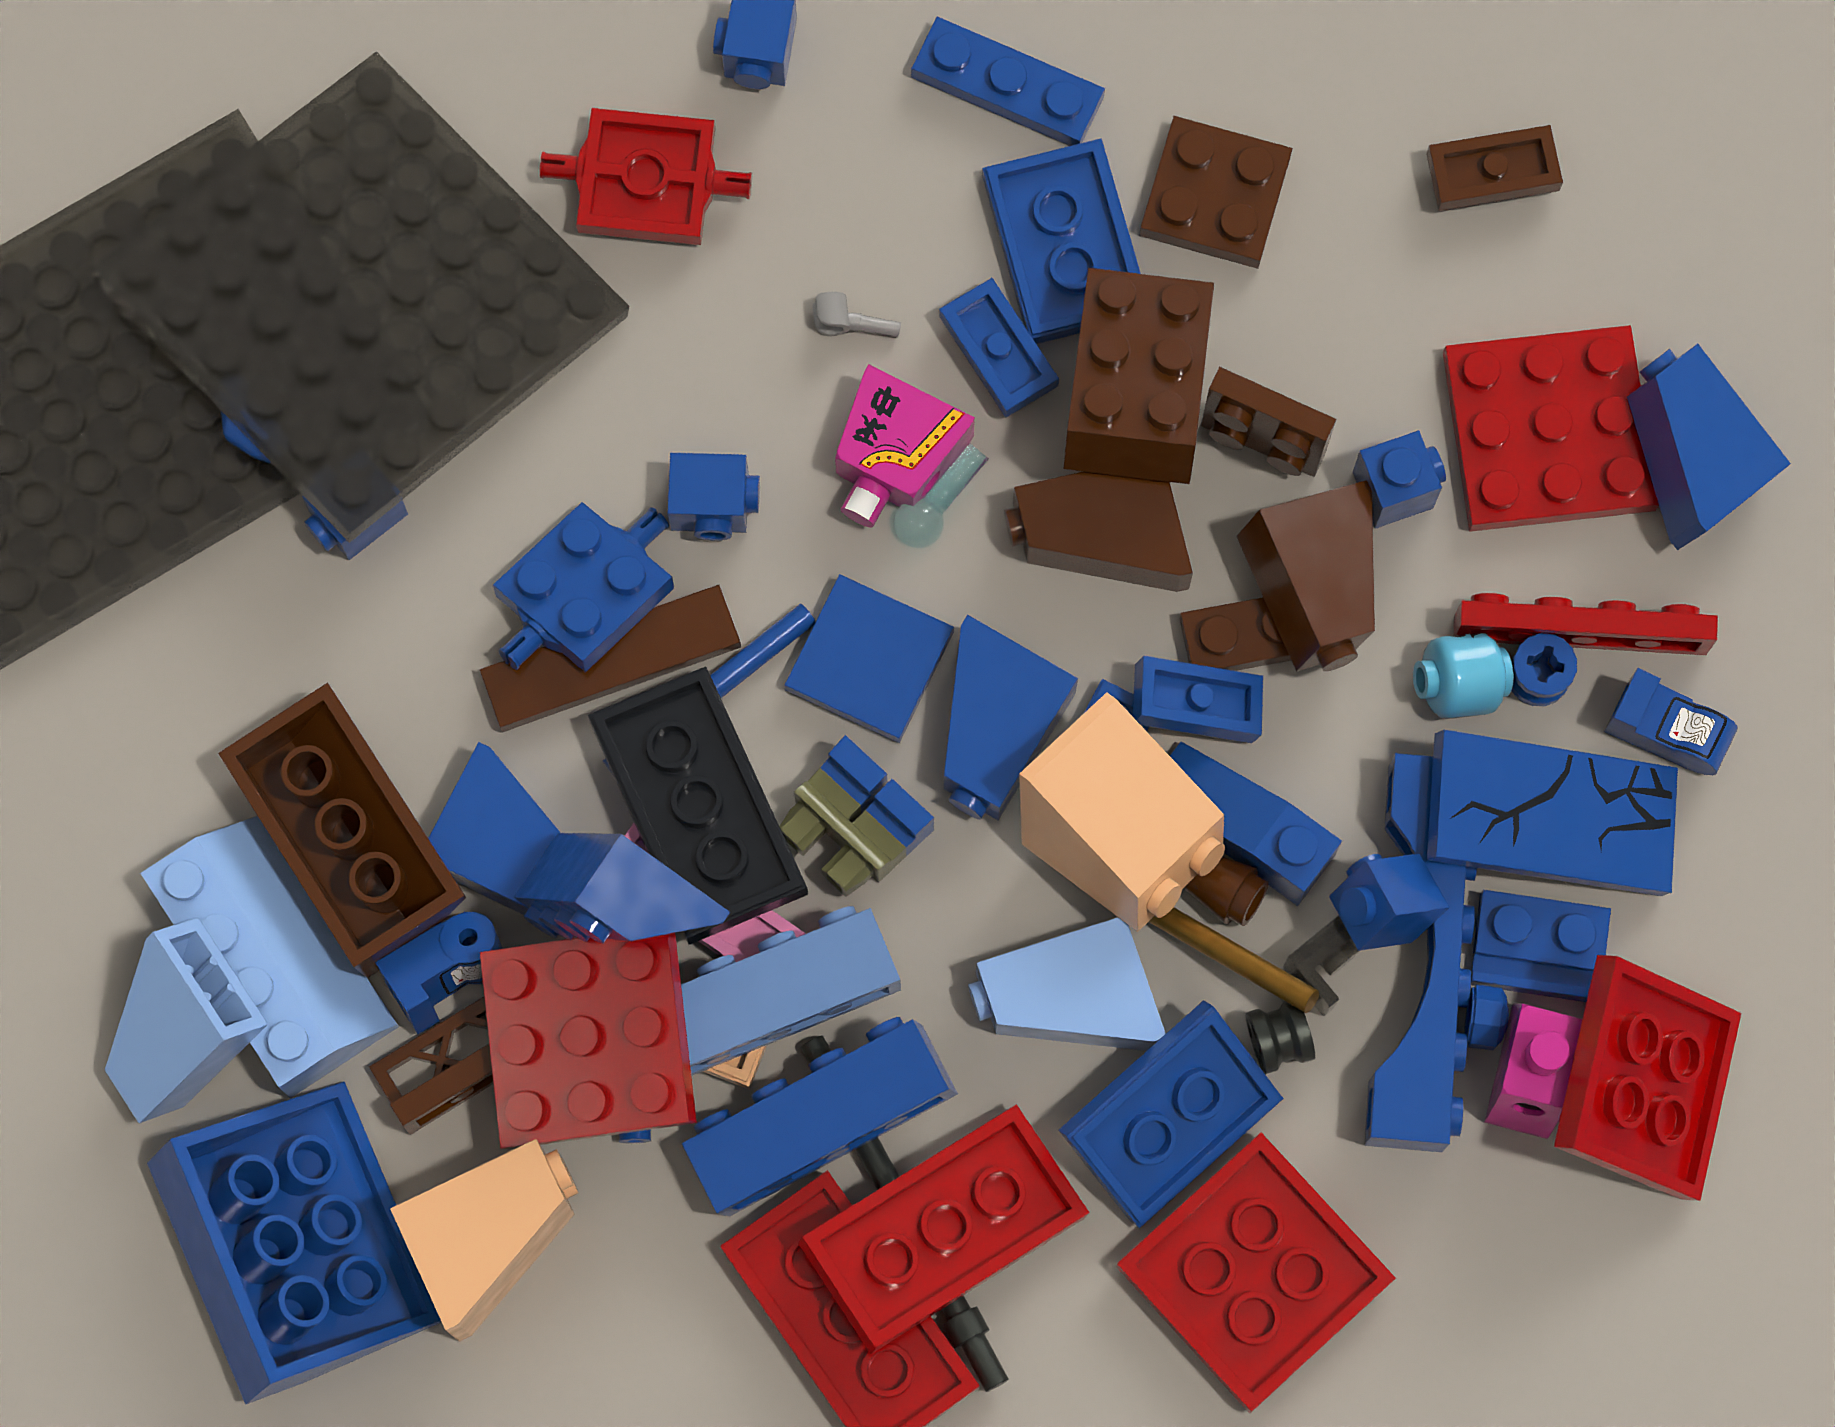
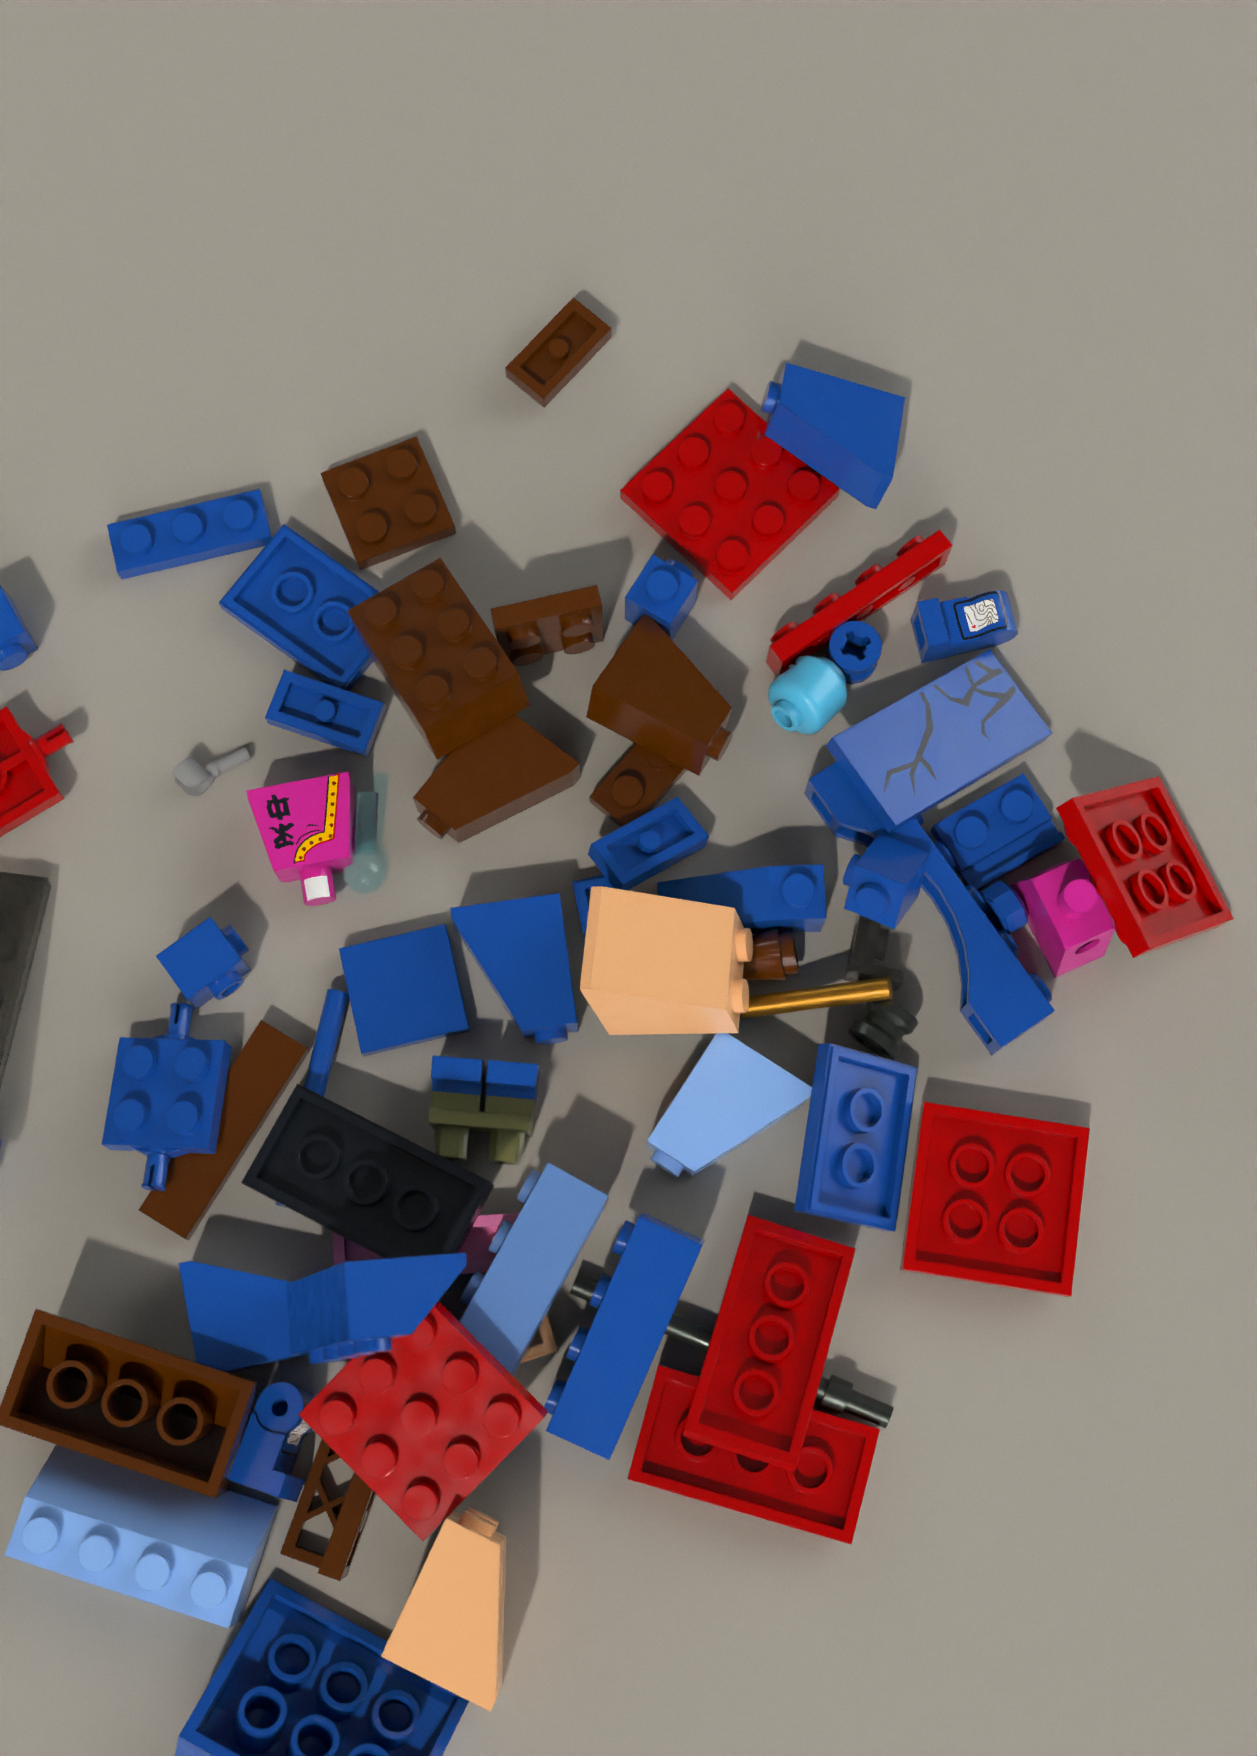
camera: 40 degrees left, 0 degrees up
(179, 1021) = (116, 1640): light blue slope -> none

